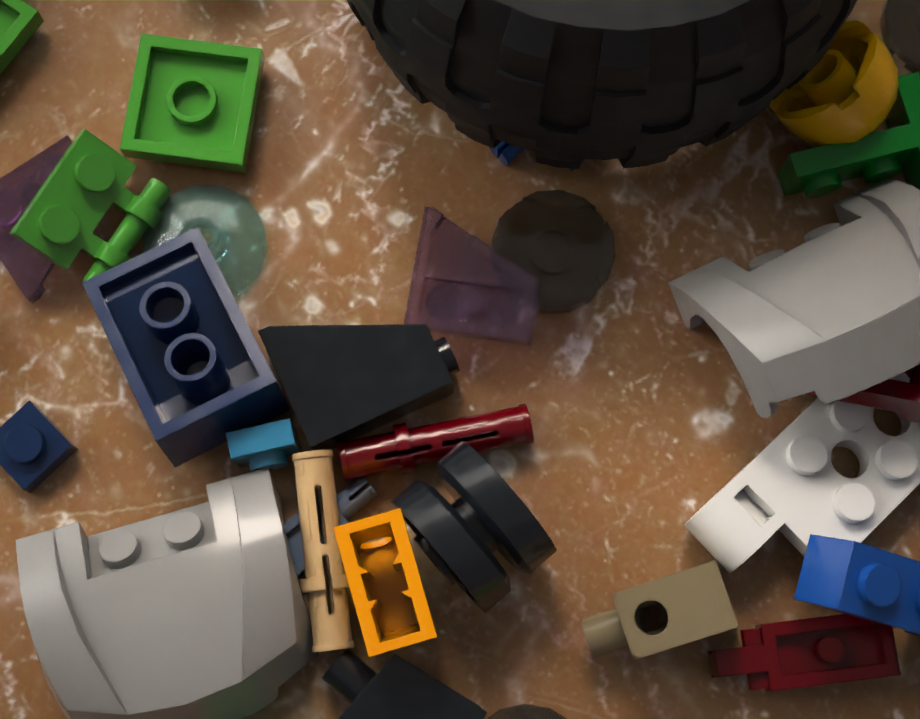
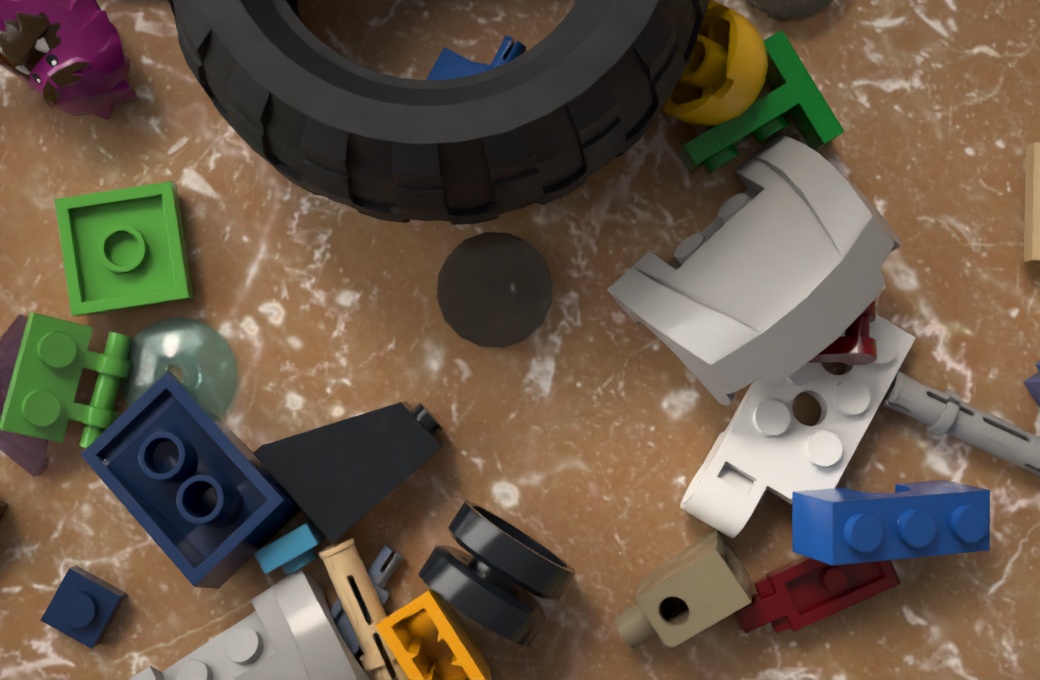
camera: 15 degrees left, 10 degrees up
(431, 442) = (439, 498): dark red pin -> none
(468, 287) = (428, 349): wing -> none

